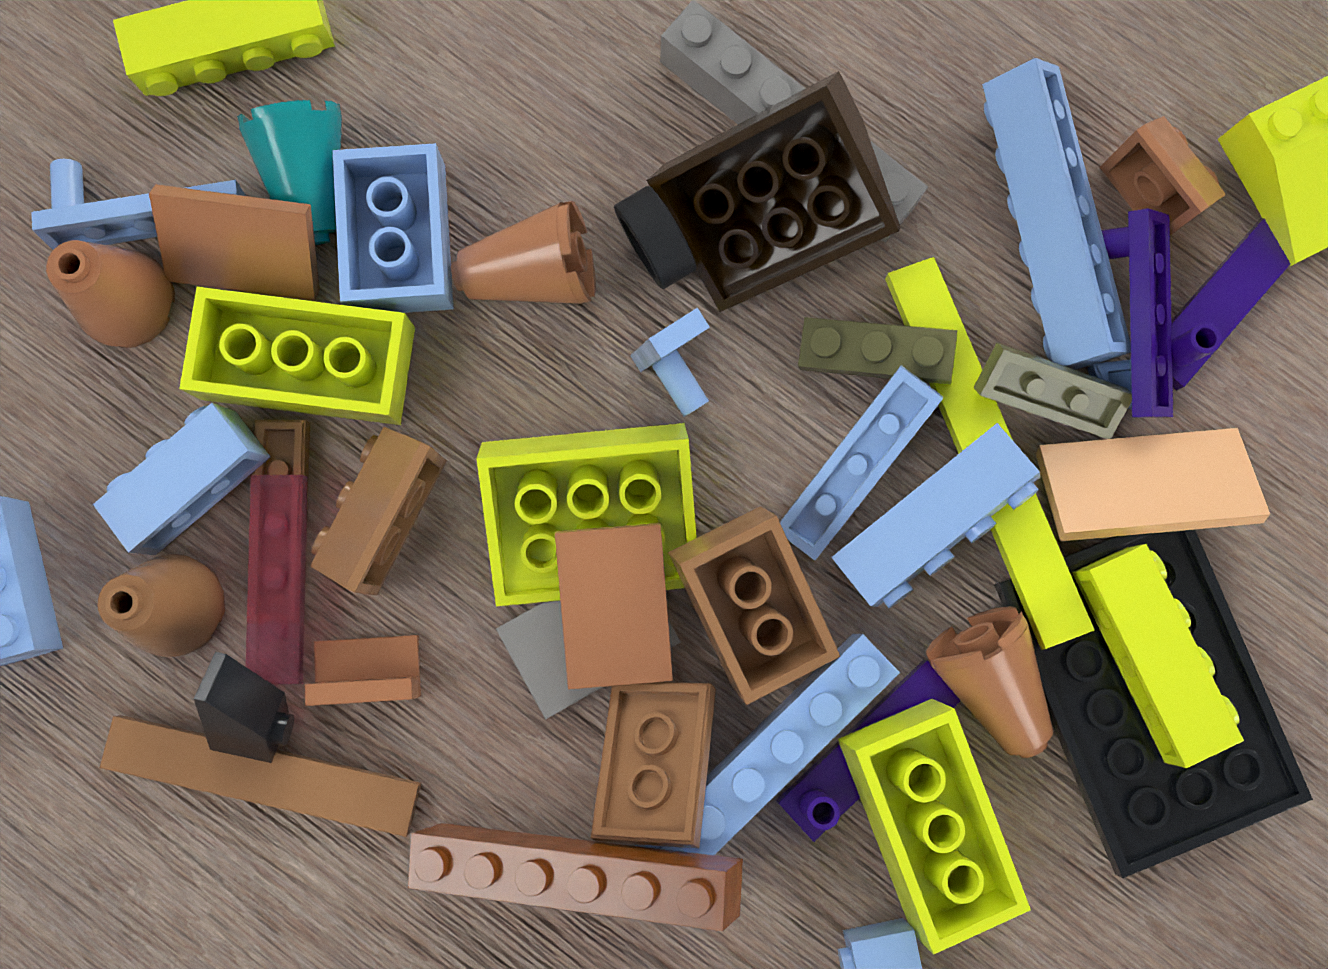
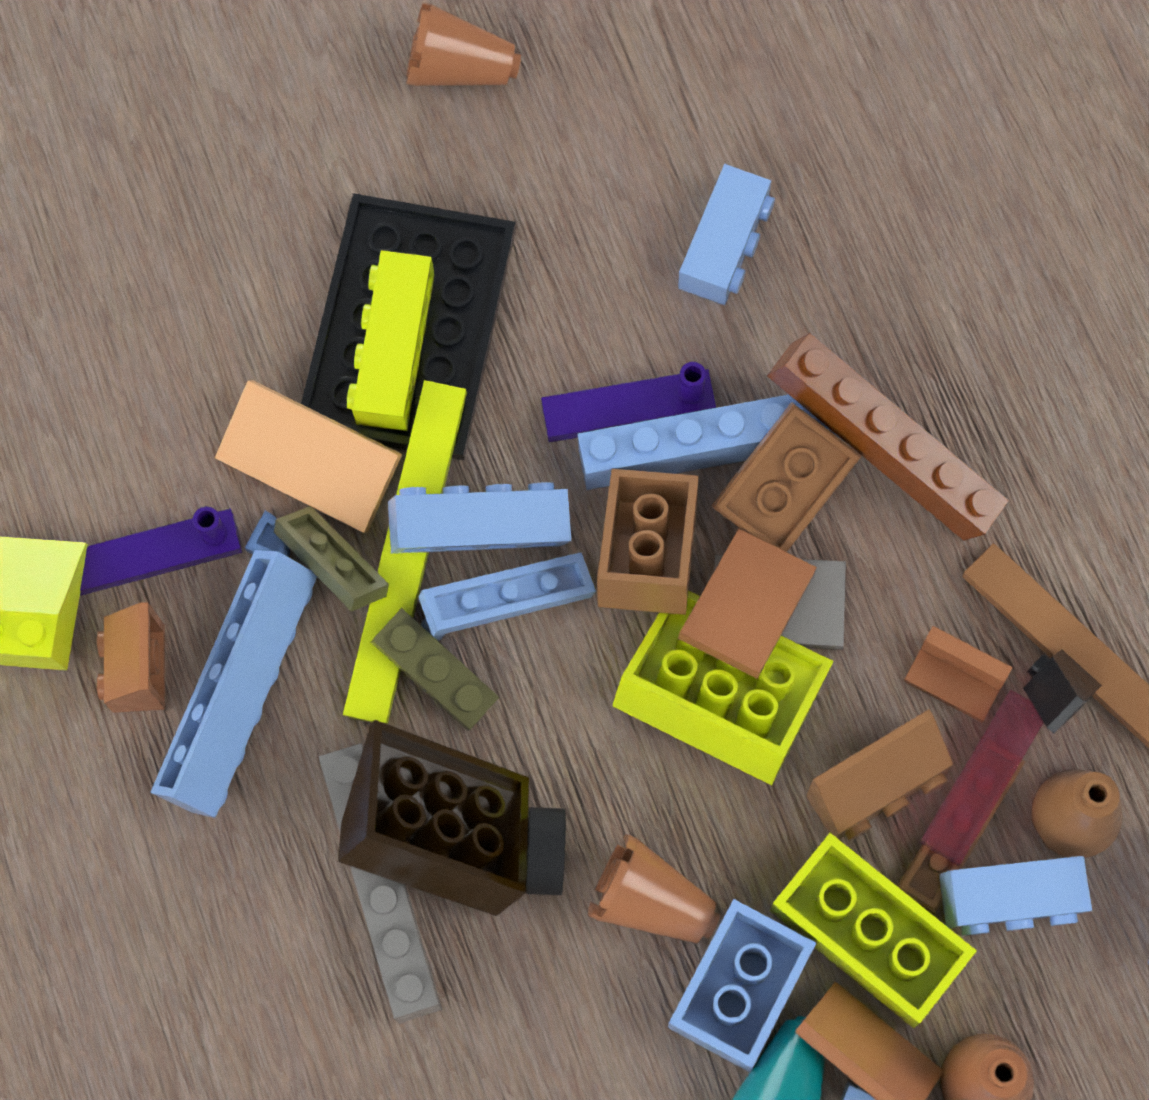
camera: 135 degrees left, 10 degrees down
(662, 354) = (594, 746): light blue piece -> none
(934, 824) = (620, 328): neon yellow brick -> none
(997, 678) = (510, 397): nougat cone -> none
(1148, 248) = (190, 613): dark purple piece -> none

